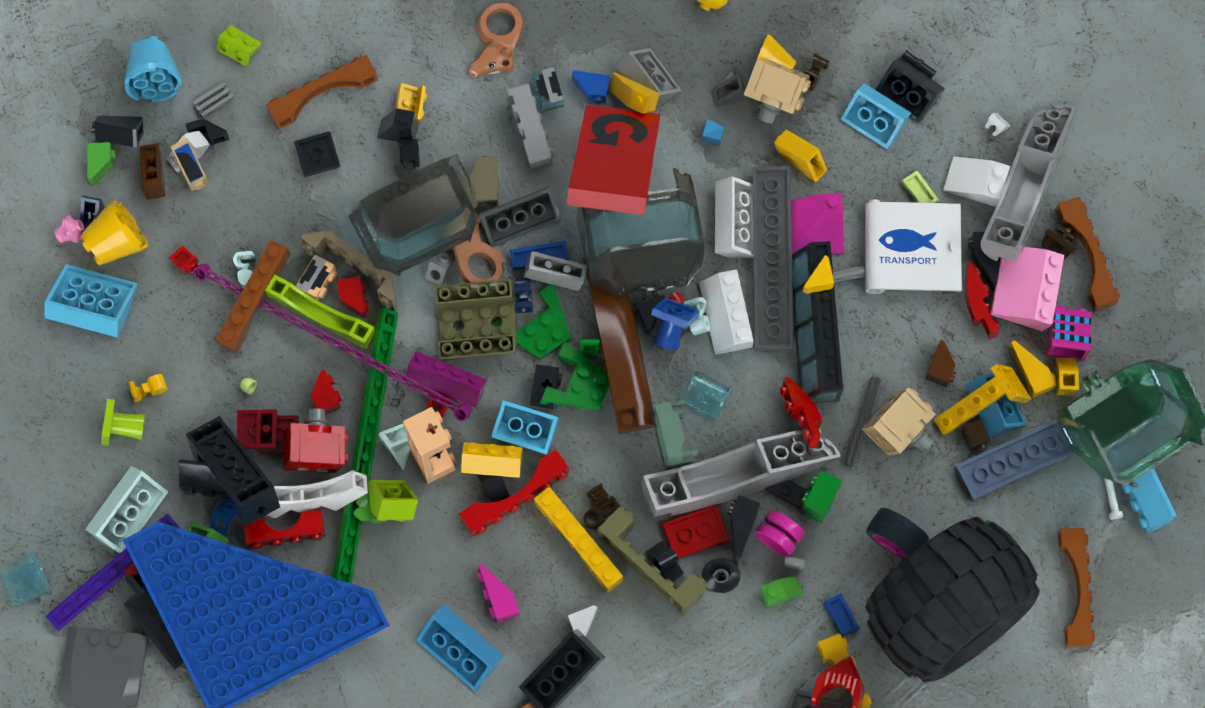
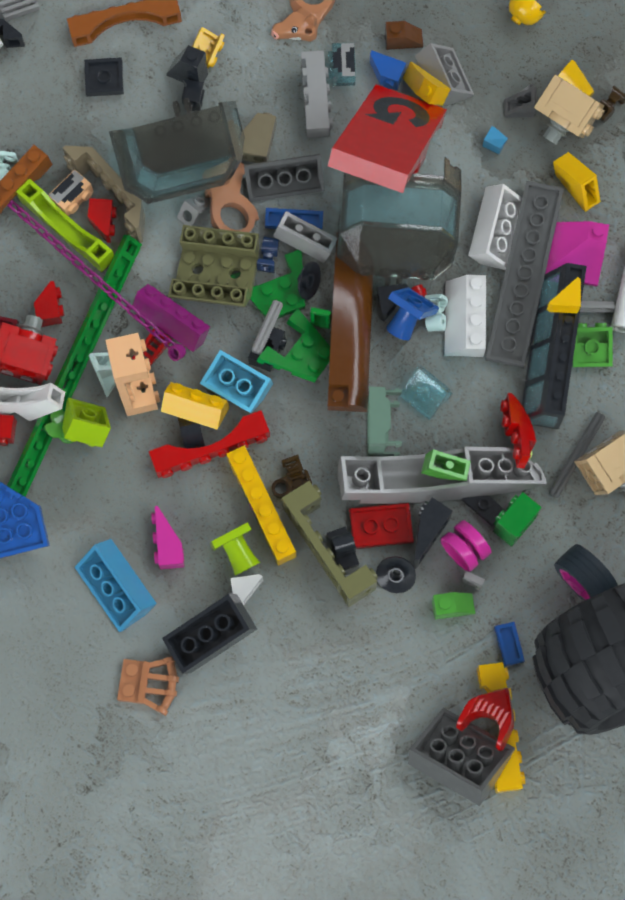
camera: 15 degrees right, 0 degrees up
(541, 368) = (267, 327): none -> light grey axle
(566, 586) = (237, 549): none -> lime plant
(569, 312) = (309, 280): none -> black dish
(598, 47) = (402, 35): none -> reddish brown slope
(743, 462) = (445, 466): none -> bright green slope
(854, 313) = (593, 346): none -> bright green plate

